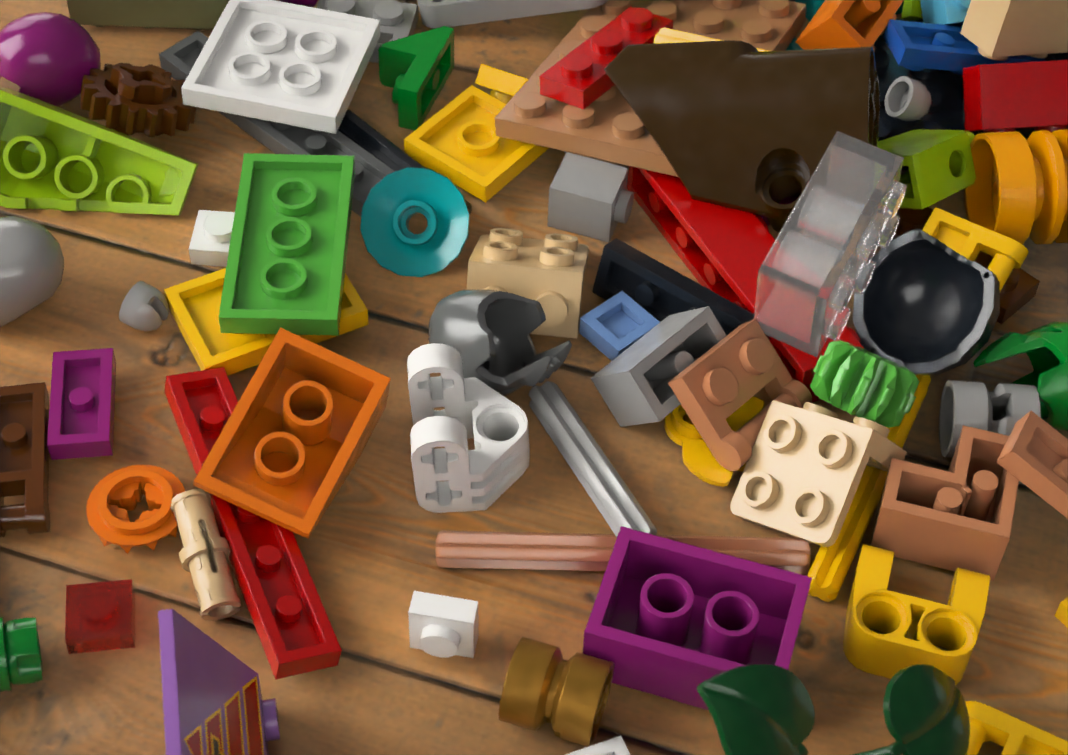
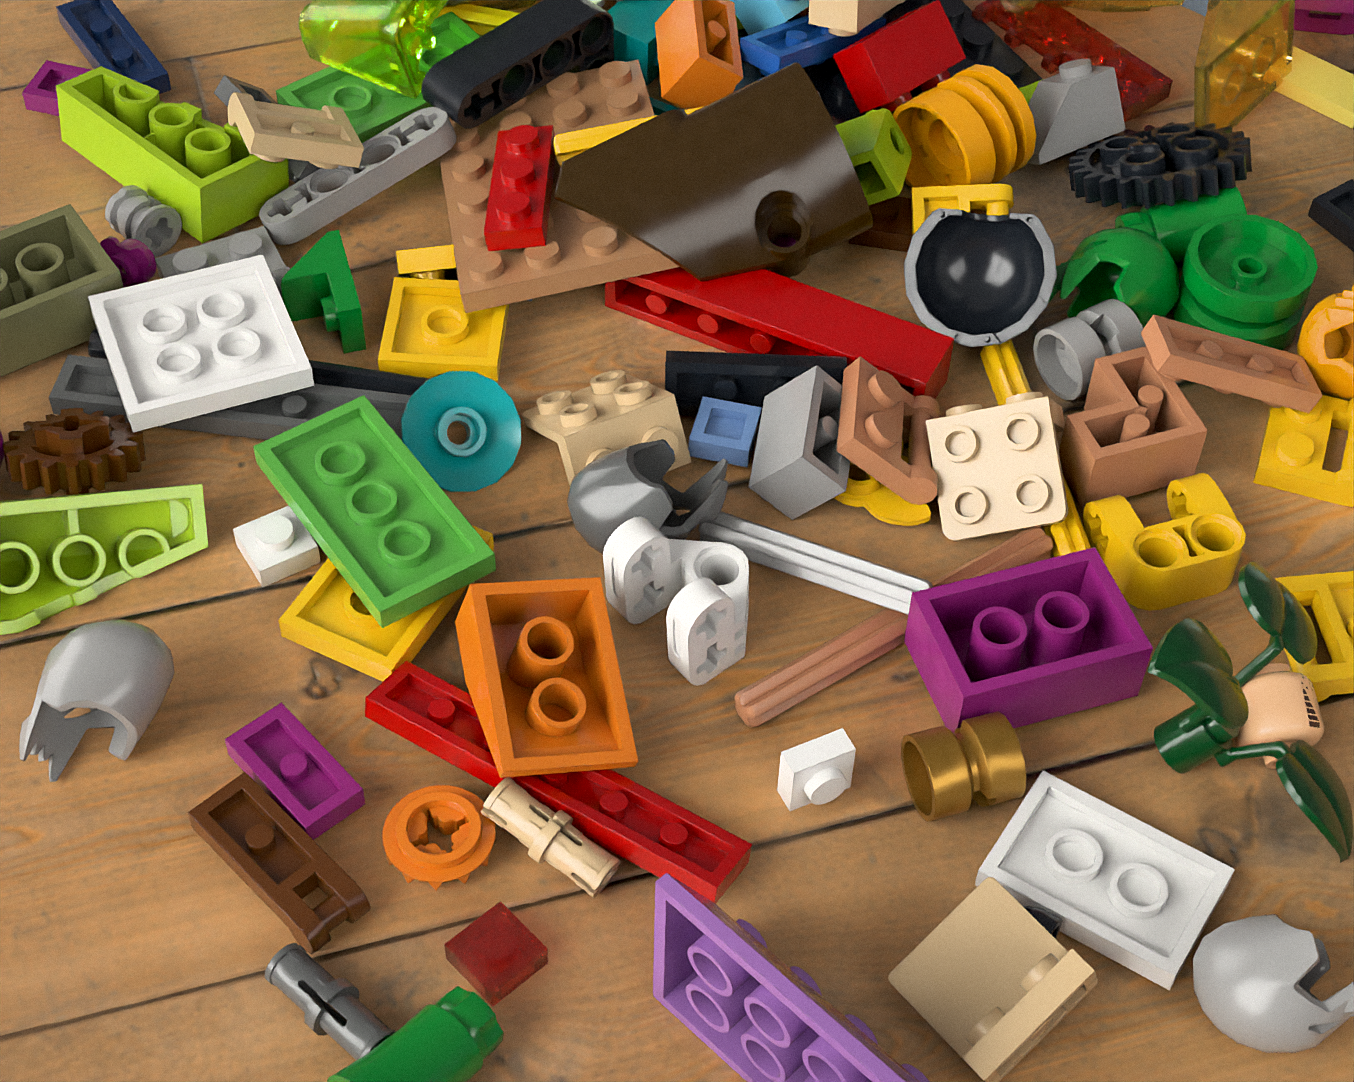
camera: 35 degrees left, 0 degrees up
(144, 307) = (270, 650): light grey hinge -> none
(589, 197) = (596, 328): light grey brick -> none
(829, 244) = (891, 256): clear brick -> none
(864, 384) = (988, 366): bright green gear -> none

